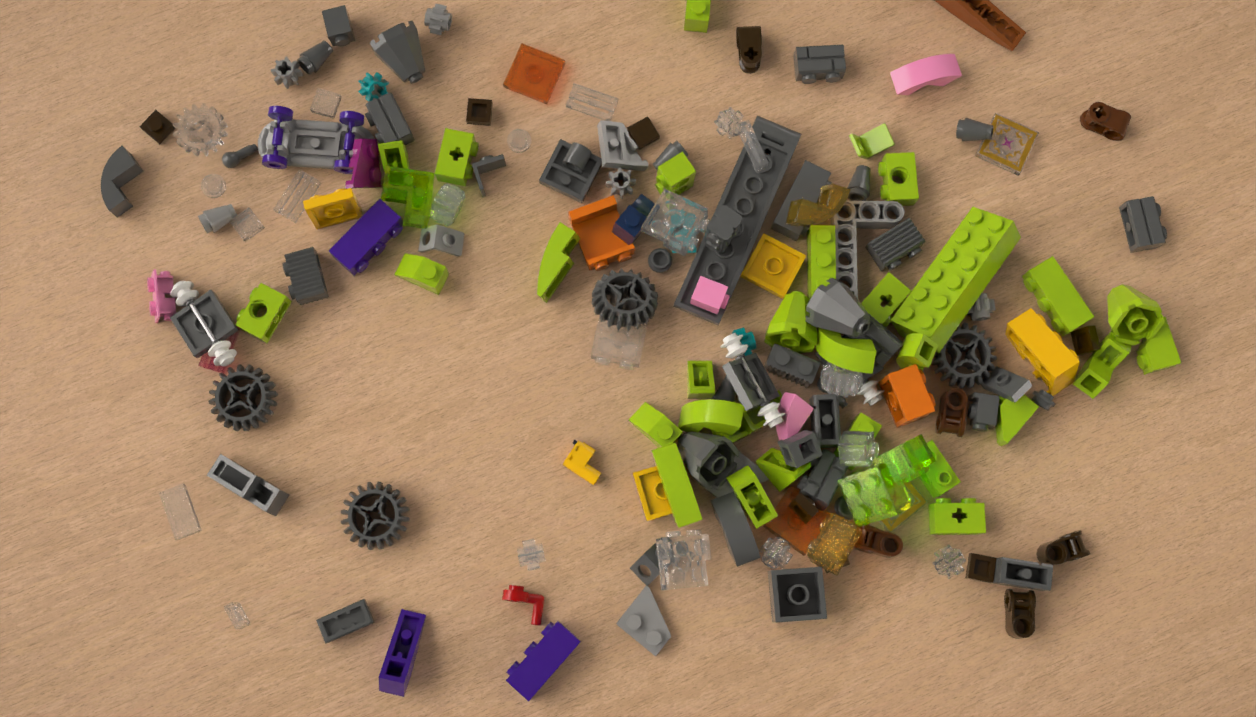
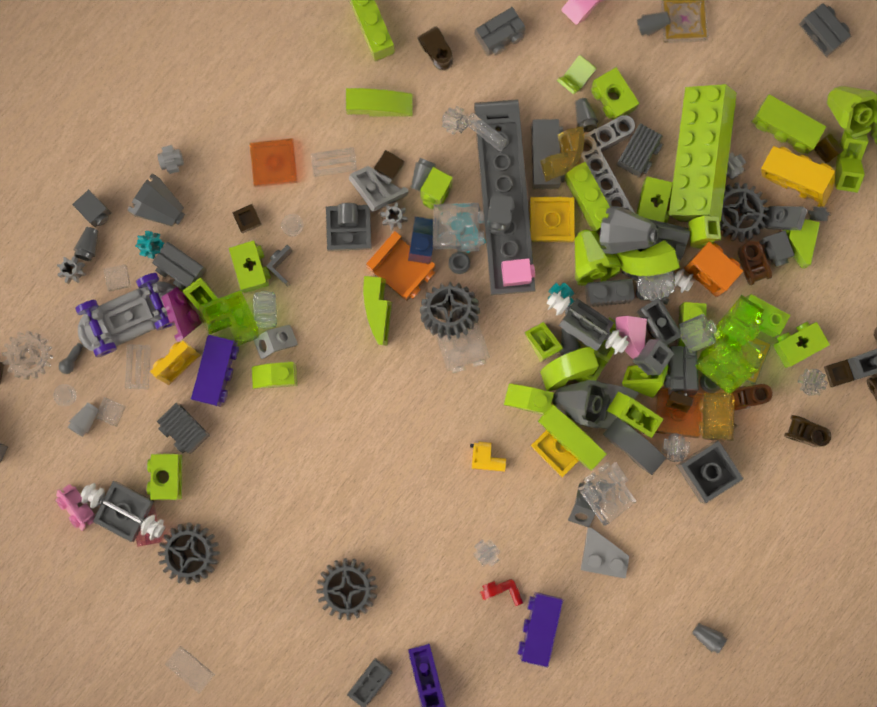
camera: 25 degrees left, 5 degrees up
(248, 485) = (232, 620): dark grey slope -> none
(665, 68) = (378, 102): none -> lime slope
(916, 608) = (804, 430): none -> dark brown piece

